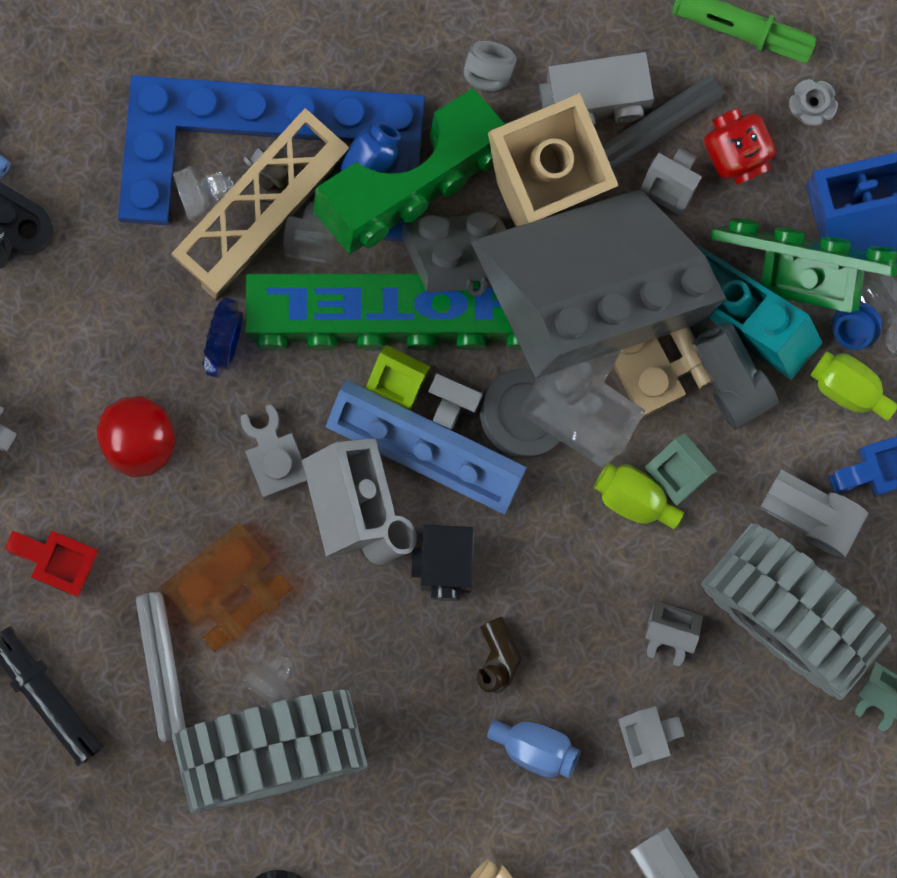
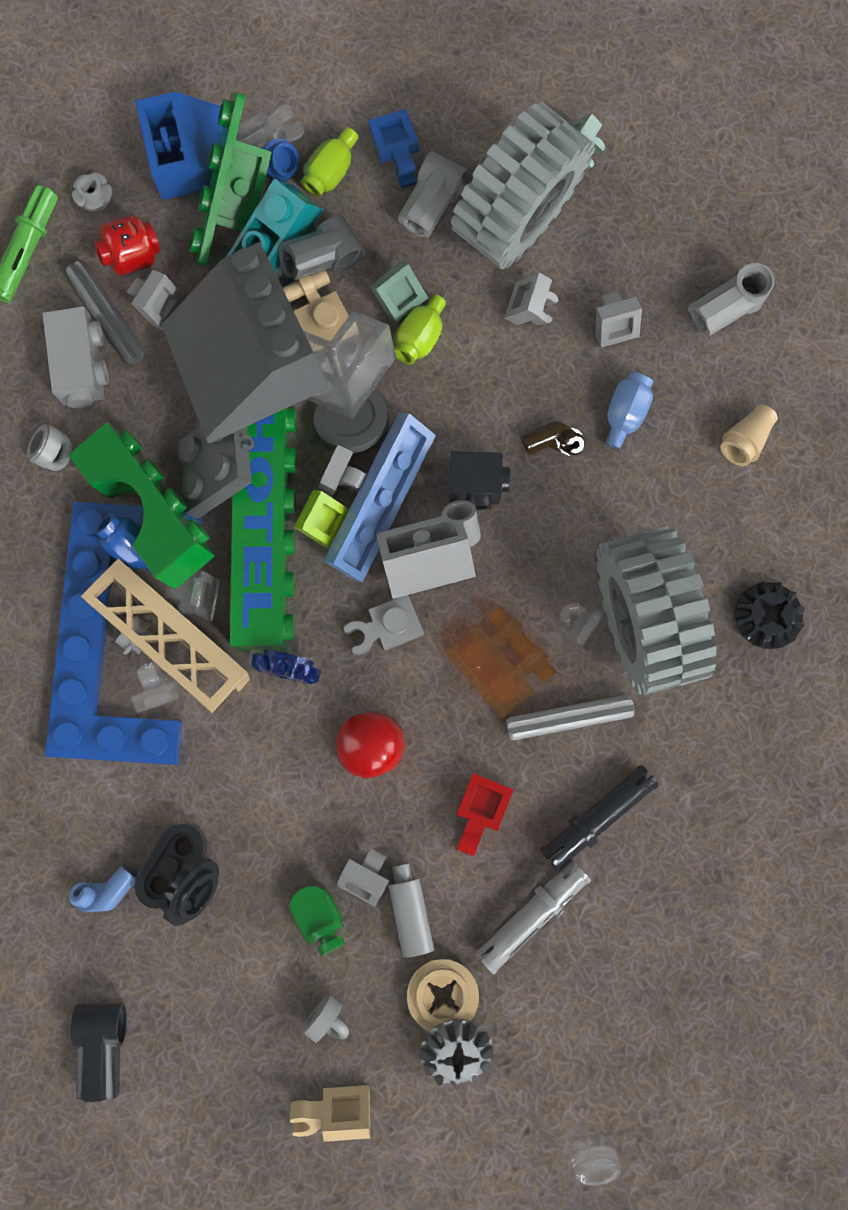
camera: 90 degrees left, 0 degrees up
(549, 161) = (138, 388): tan slope -> none

